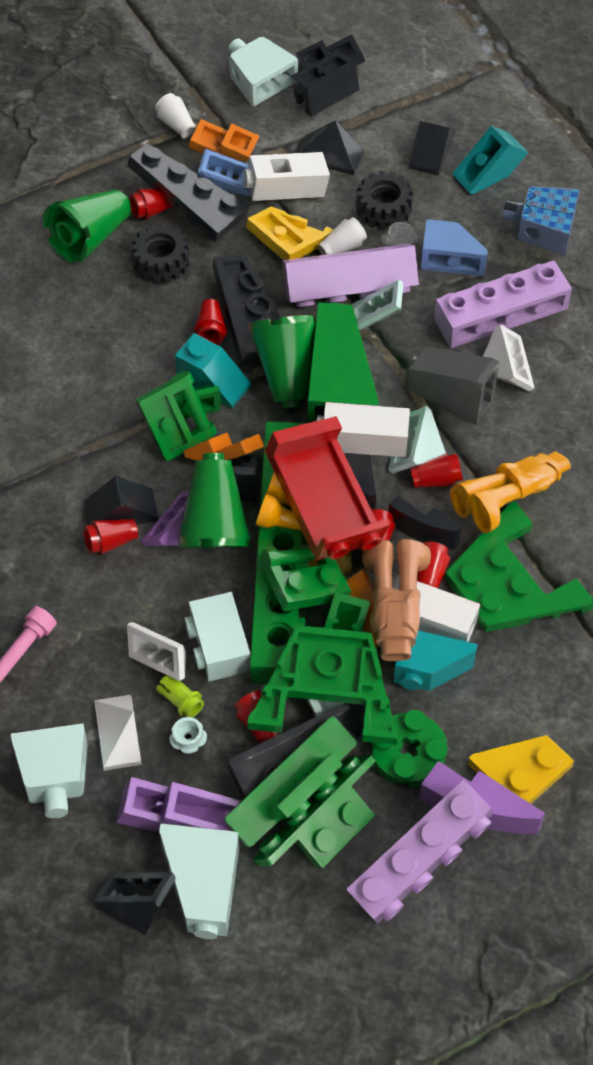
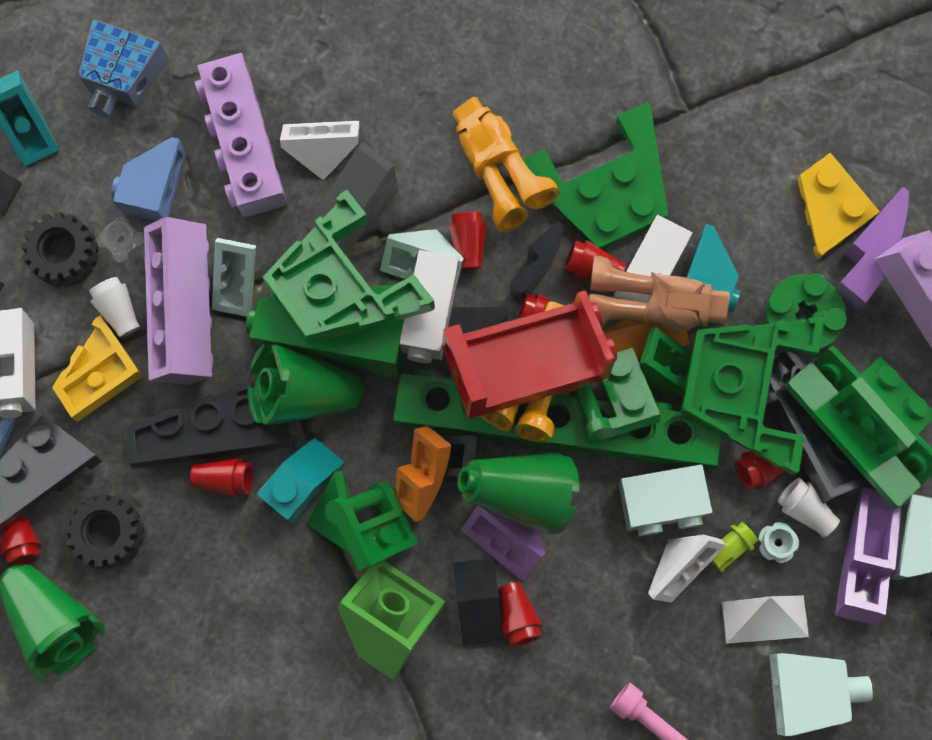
camera: 80 degrees left, 20 degrees up
(103, 439) = (387, 616): none -> bright green slope
(221, 748) = (805, 506): none -> white cone
(365, 338) = (325, 290): none -> wing

